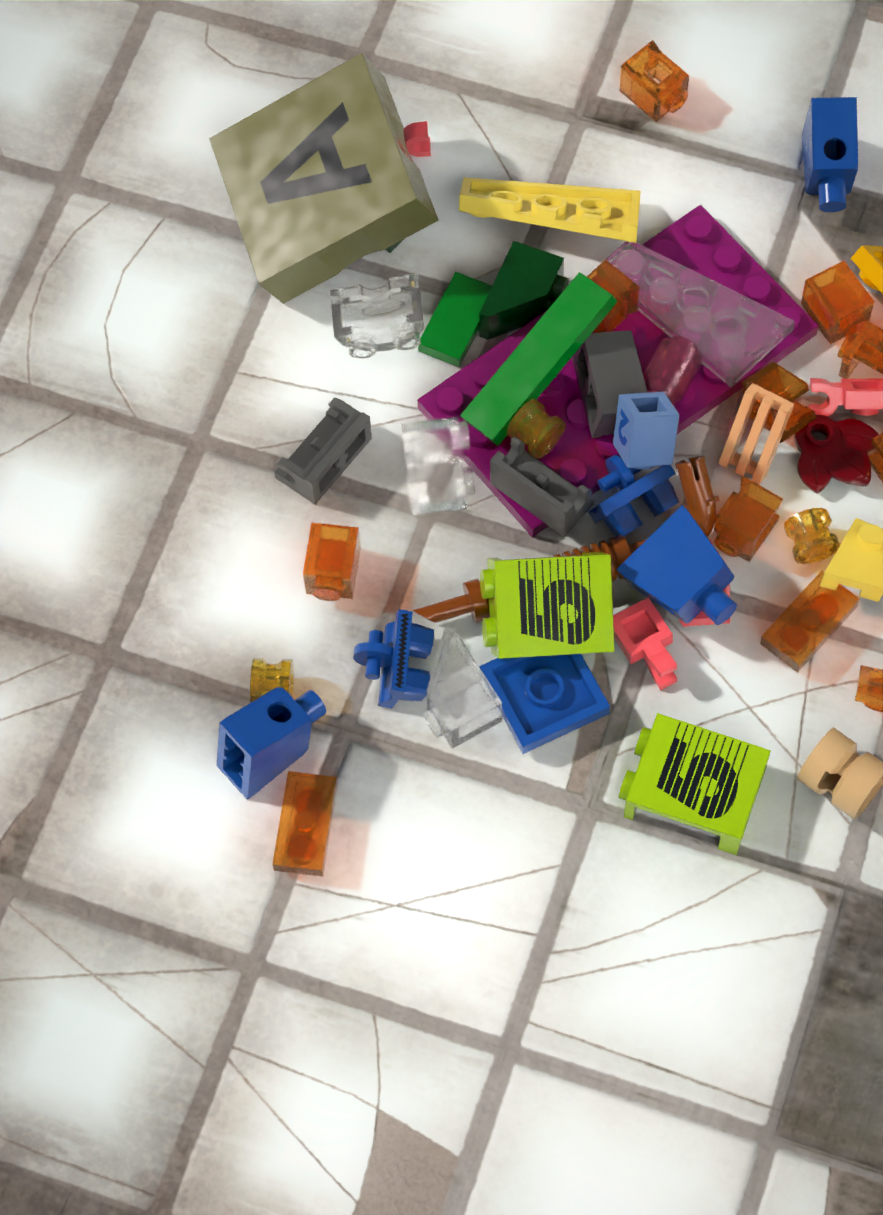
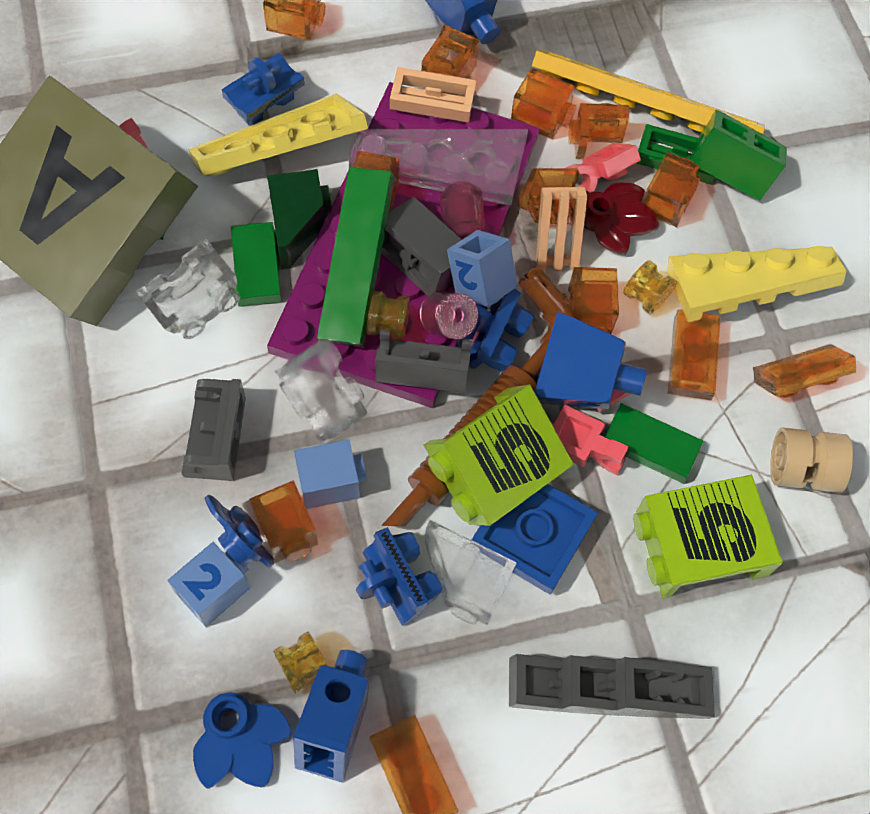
camera: 40 degrees left, 0 degrees up
(180, 722) = (242, 748): none -> blue plate
(239, 576) = (210, 583): none -> medium blue brick
(285, 548) = (241, 535): none -> blue plate
(396, 541) = (329, 473): none -> medium blue brick
(520, 857) = (611, 687): none -> dark grey slope
(570, 151) = (262, 88): none -> blue hips
(580, 443) = (449, 315): none -> clear pink brick
(712, 679) = (654, 443): none -> green tile
(723, 245) = (431, 100): none -> light nougat tile
(780, 226) = (459, 42): none -> clear orange window

